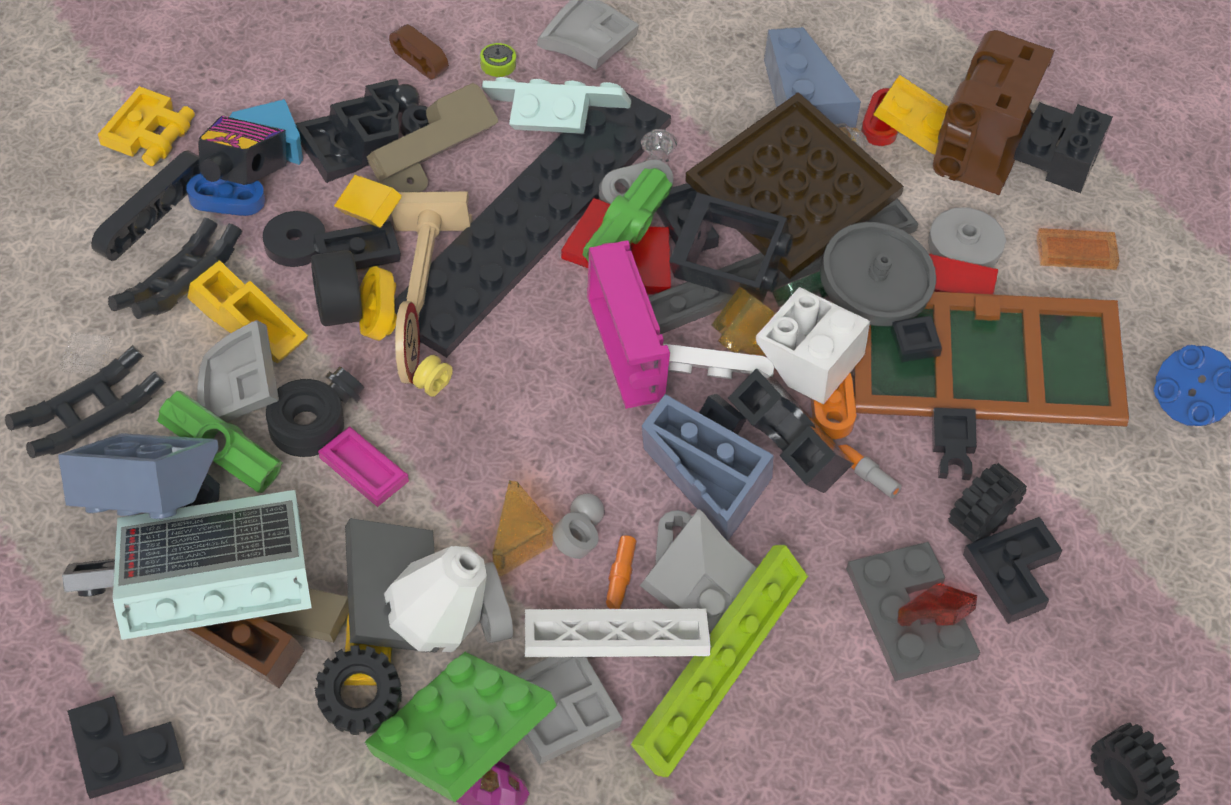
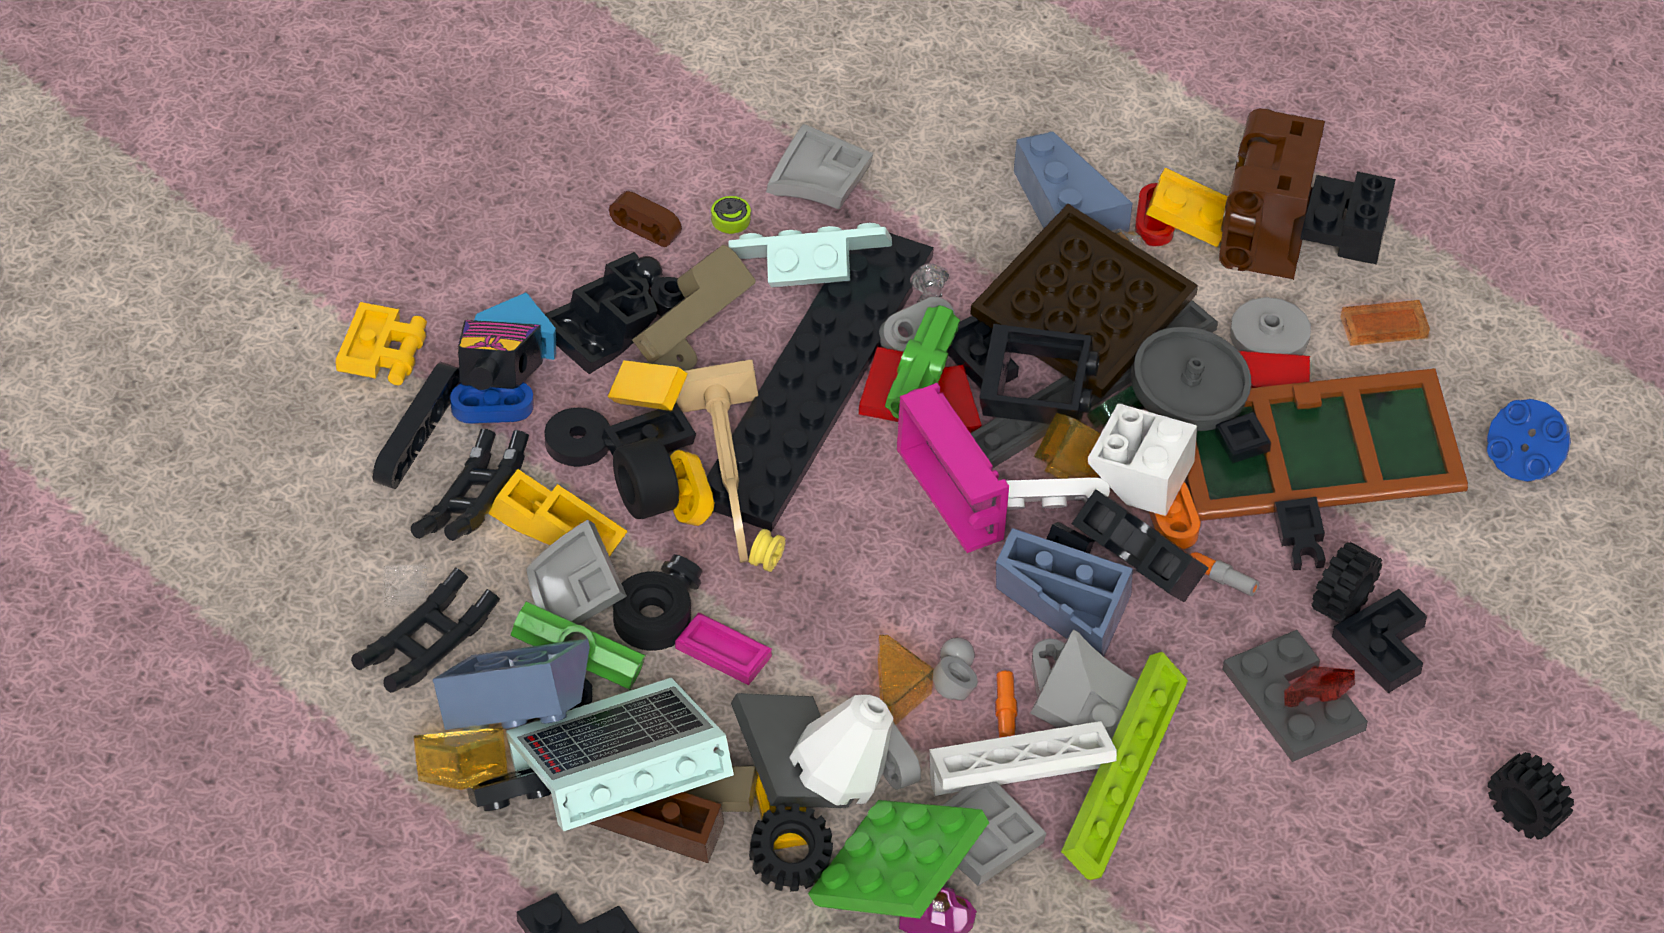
camera: 10 degrees left, 5 degrees down
(70, 537) = (460, 757): none -> clear yellow slope

